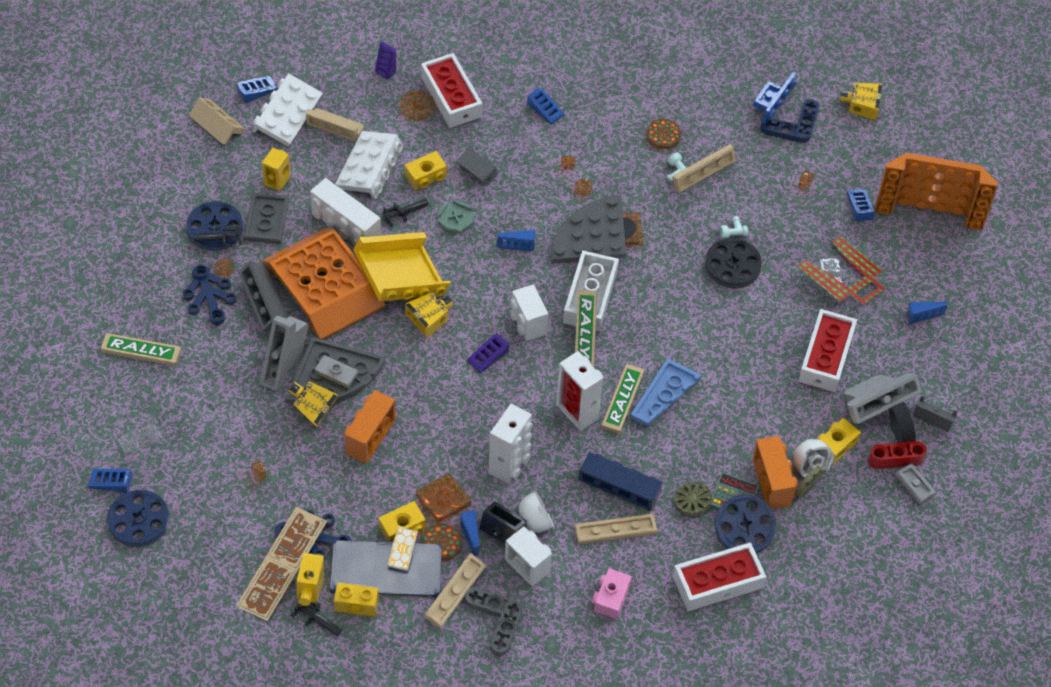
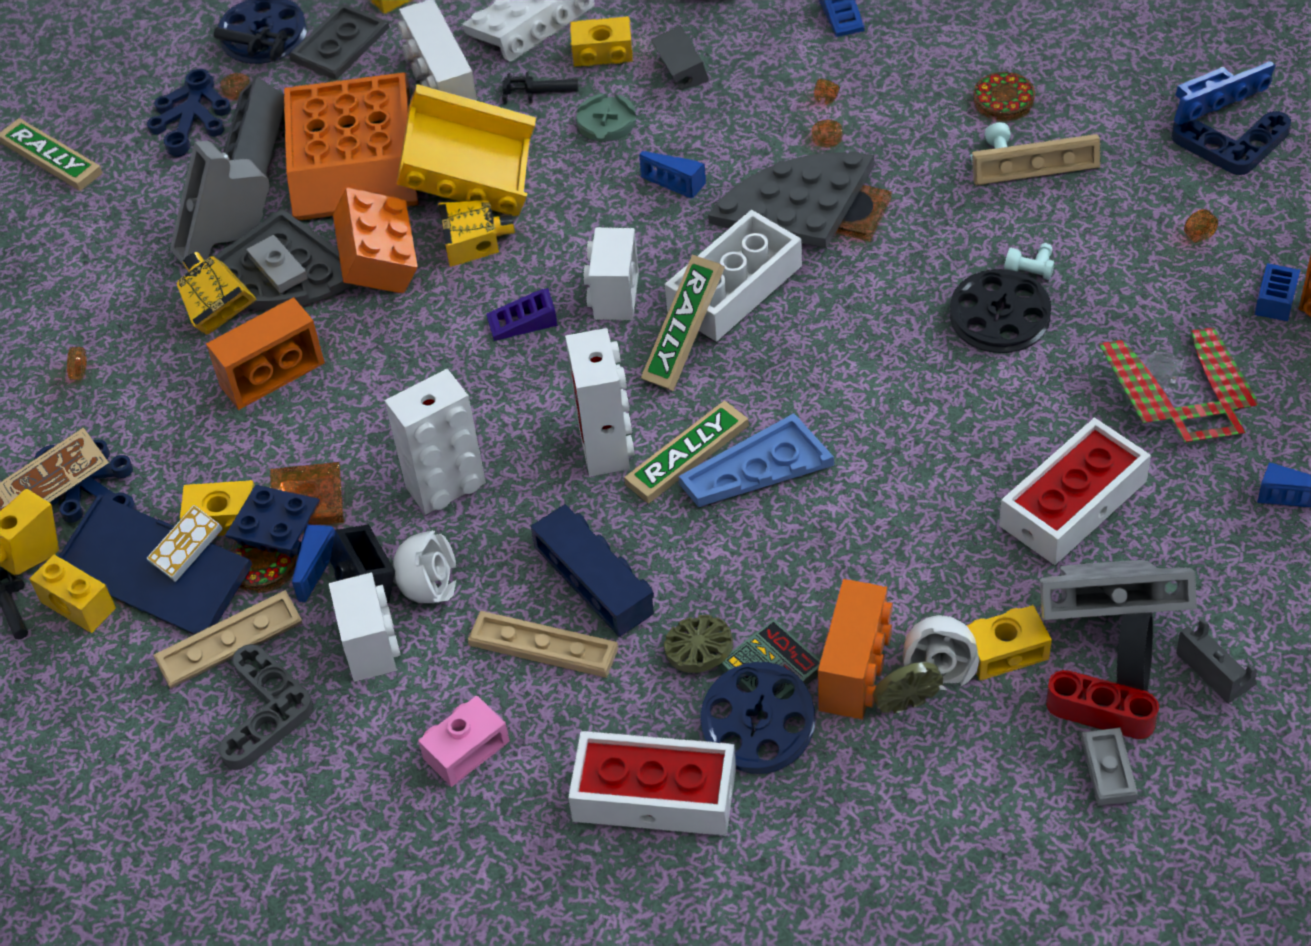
camera: 35 degrees right, 5 degrees down
(384, 338) = (374, 241): none -> orange brick
(441, 517) = (273, 520): none -> dark blue hinge

